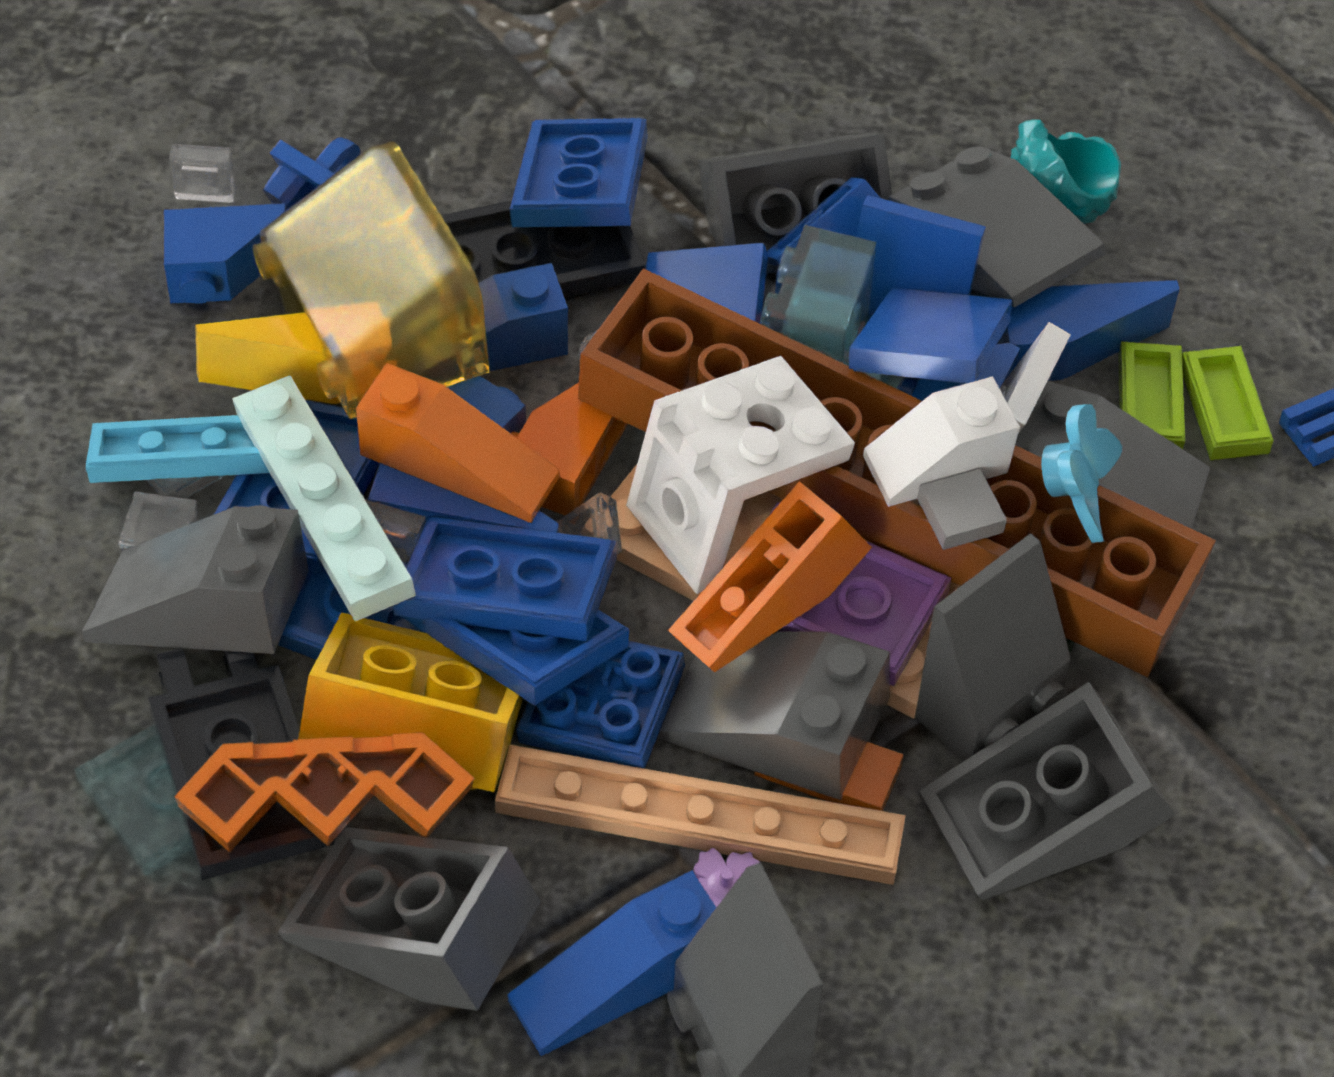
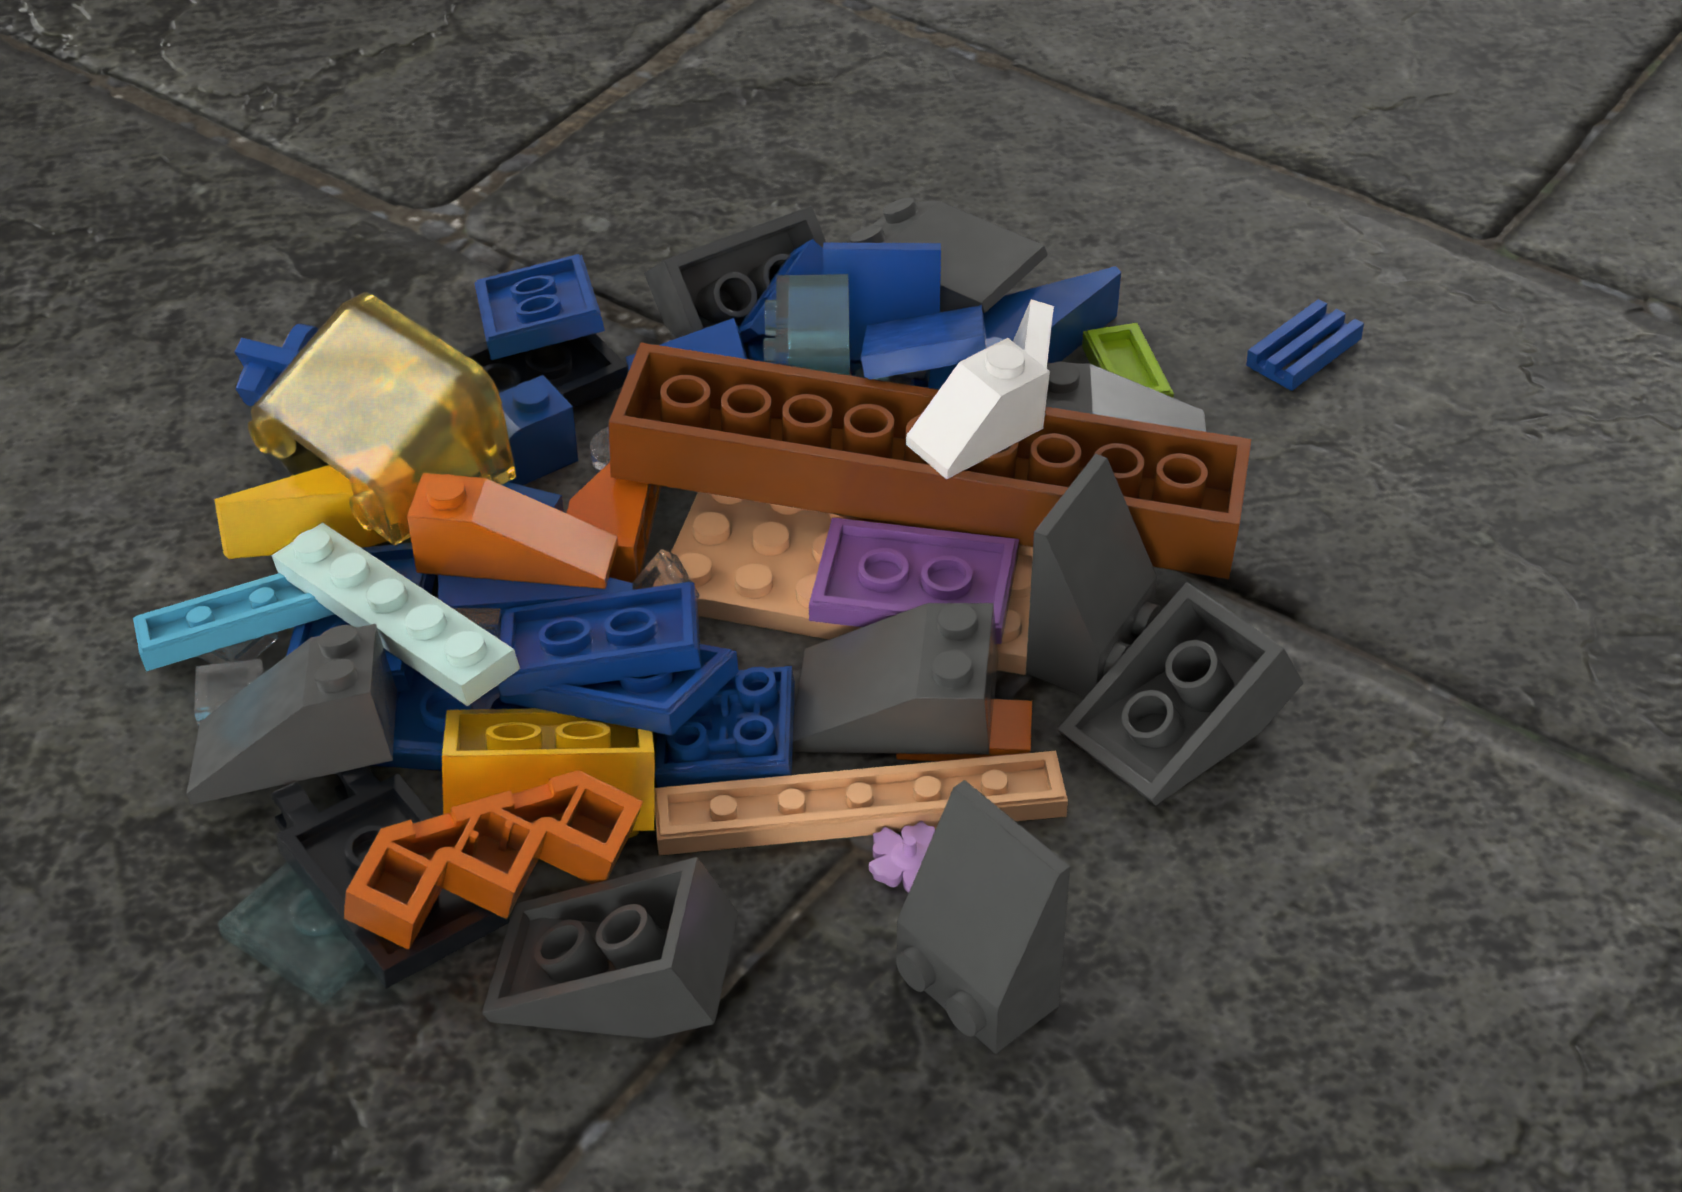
camera: 15 degrees left, 10 degrees down
(202, 173) = (171, 388): clear tile -> none
(212, 250) = (205, 447): blue slope -> none
(613, 966) = (833, 949): blue slope -> none
(708, 459) = (769, 469): white bracket -> none
(771, 579) = (860, 568): orange slope -> none
(961, 508) = (1016, 462): light grey tile -> none
(1073, 168) = (994, 200): teal hair -> none
(1079, 464) = (1110, 401): medium azure animal -> none
(1226, 403) = (1195, 359): lime tile -> none

